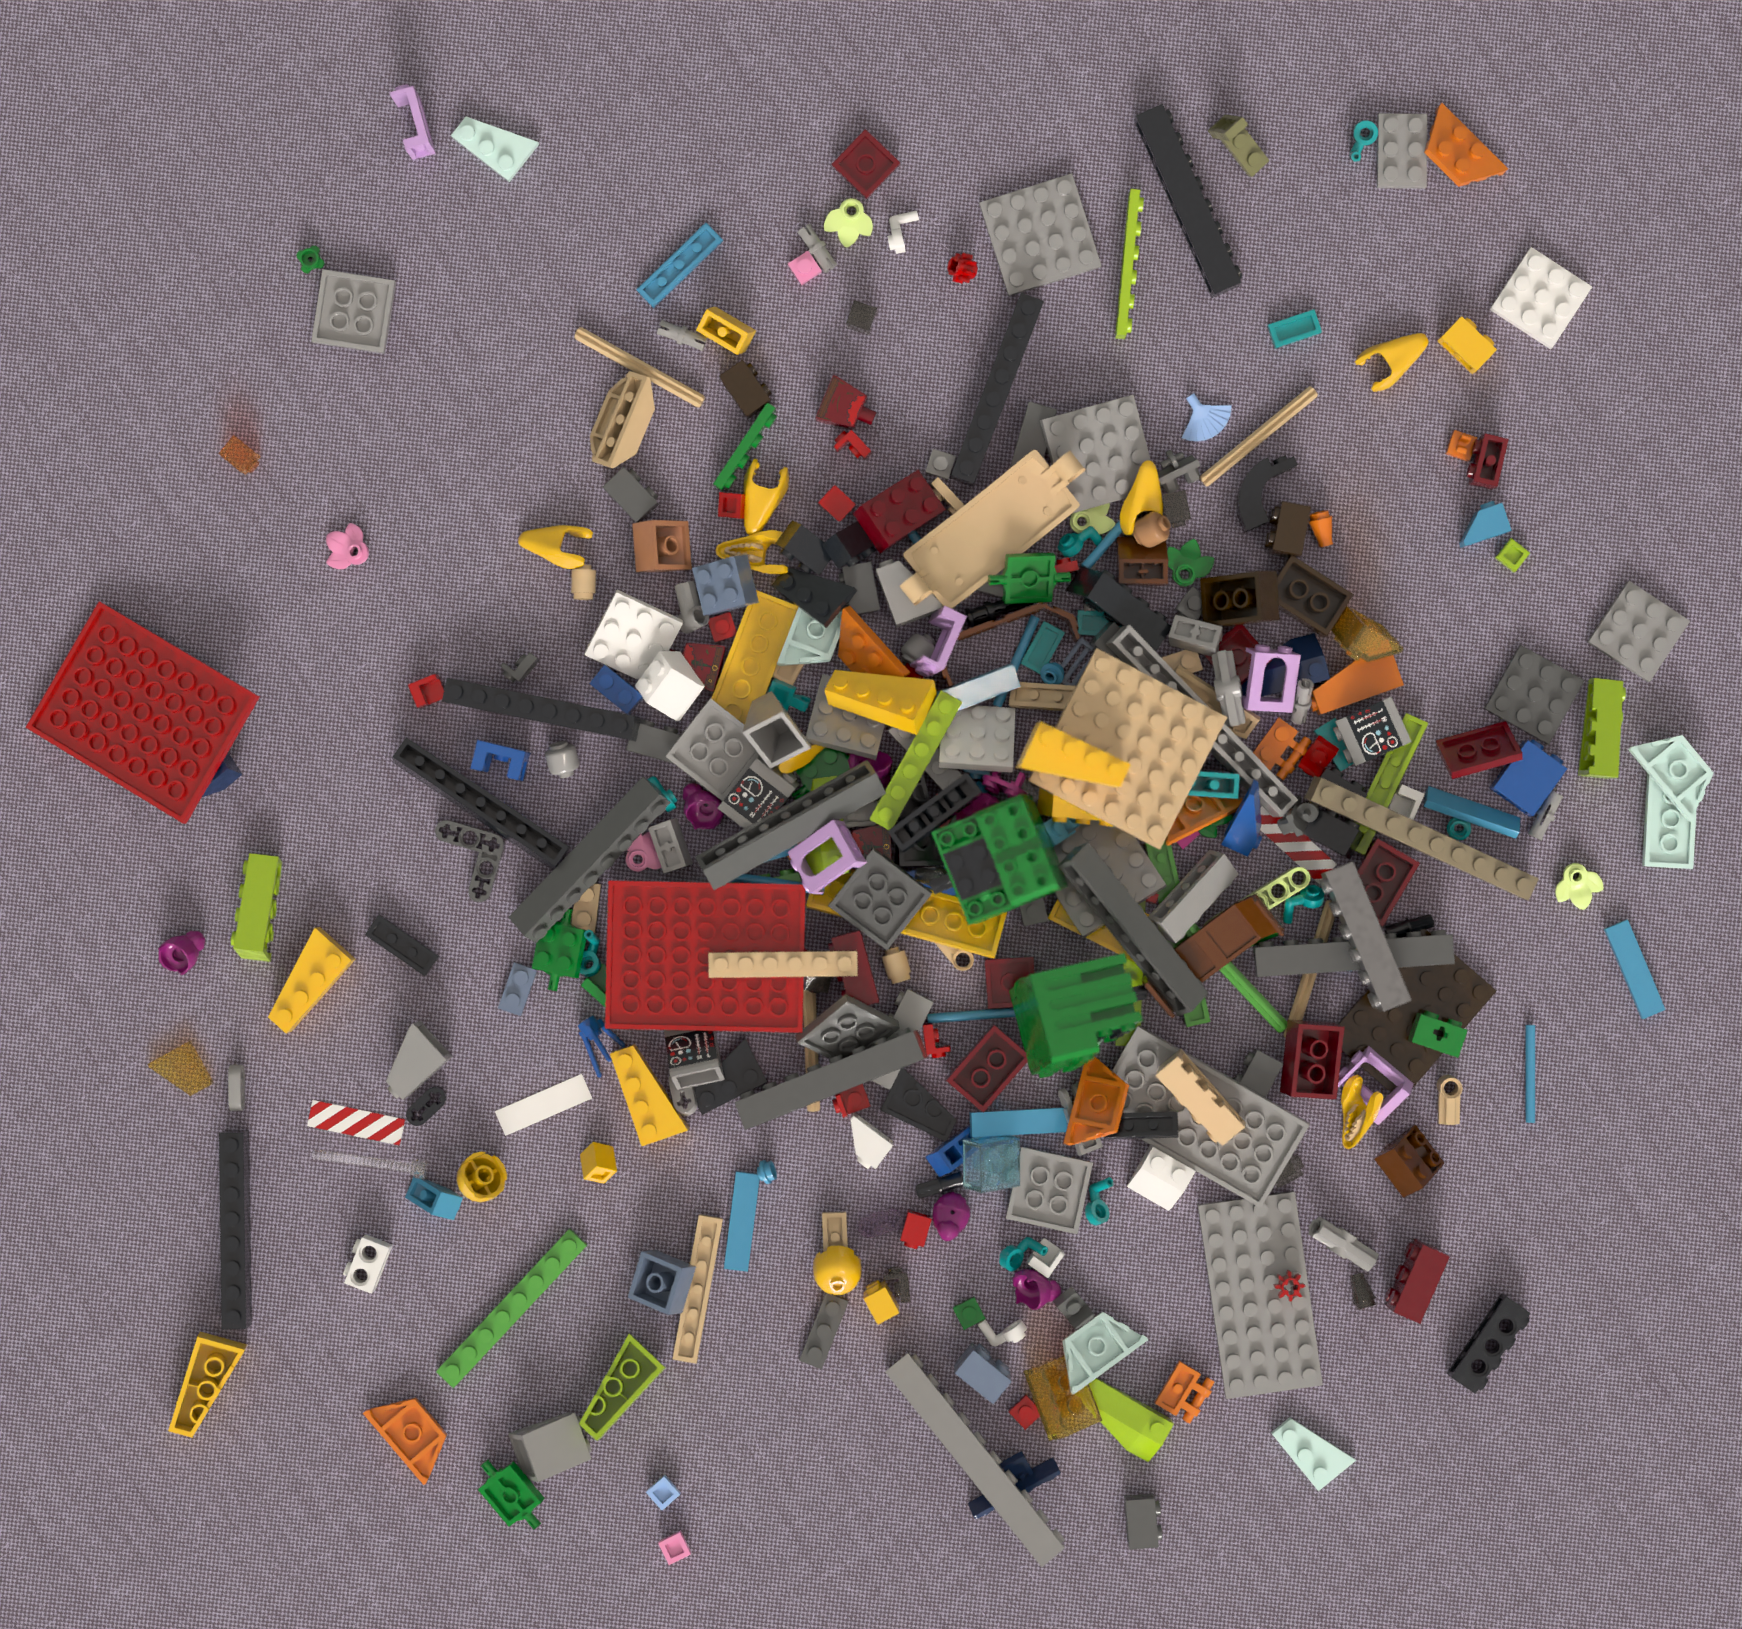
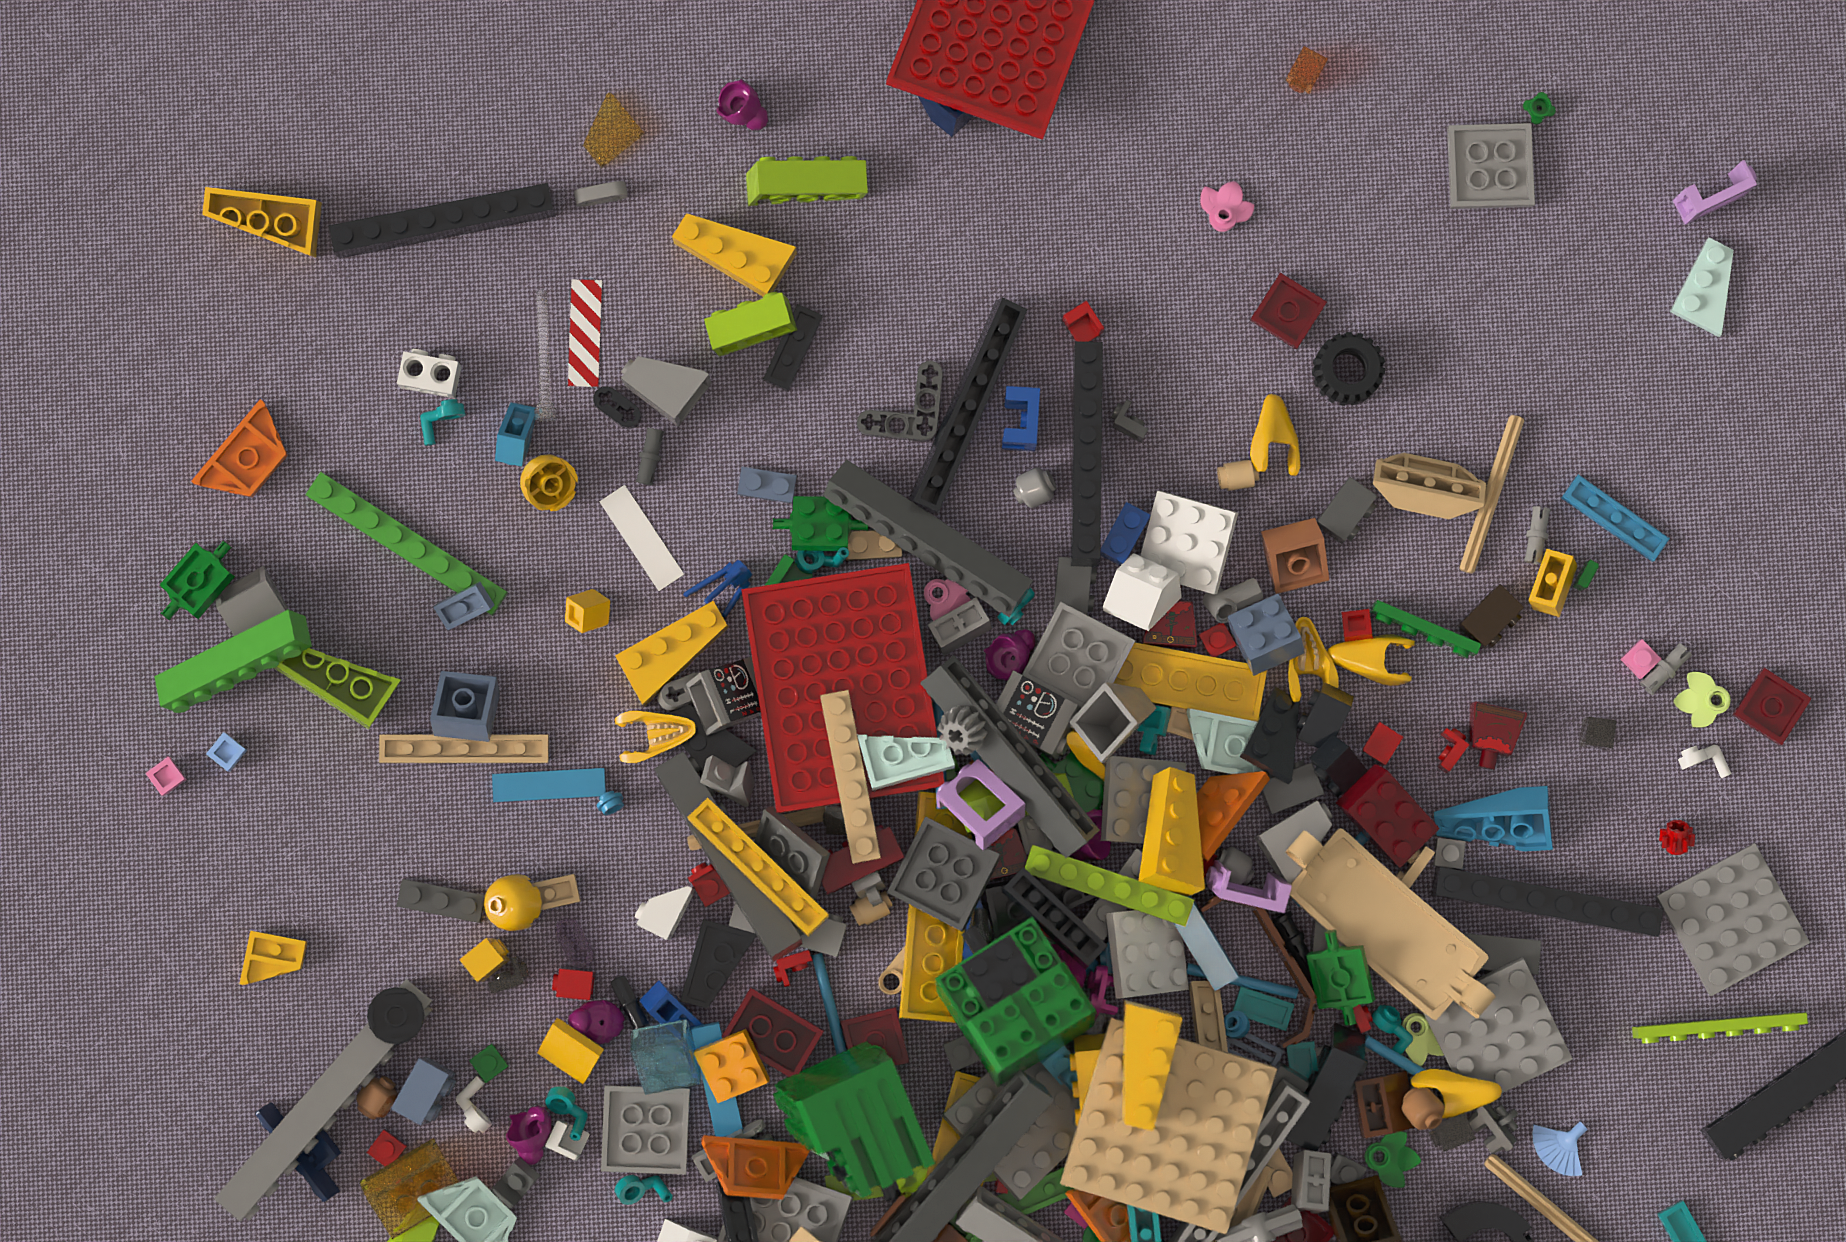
camera: 80 degrees right, 5 degrees down
(374, 978) = (750, 323): none -> lime brick
(402, 1251) = (448, 410): none -> teal plate
(448, 511) = (1288, 311): none -> dark red plate
(474, 1085) = (650, 456): none -> dark grey pin
(493, 455) = (1364, 352): none -> black tyre
(575, 1268) = (463, 606): none -> sand blue plate
(587, 1475) = (233, 661): none -> bright green brick
(714, 1116) = (662, 731): none -> yellow animal
(724, 300) = (1585, 575): none -> green tile
(761, 862) = (962, 730): none -> light grey gear
(766, 1068) = (729, 781): none -> light grey slope
(776, 916) = (903, 759): none -> light aqua wing
(845, 1056) = (758, 867): none -> yellow plate
(845, 1483) = (271, 956): none -> yellow wing
(879, 963) = (869, 887): none -> light grey tile
(915, 1386) = (395, 1015): none -> black tile
(919, 408) = (1510, 818): none -> dark azure wedge
(971, 1242) = (570, 1051): none -> yellow tile
(981, 1413) = (377, 1097): none -> medium nougat head
(1009, 1108) = (731, 1066): none -> light orange plate

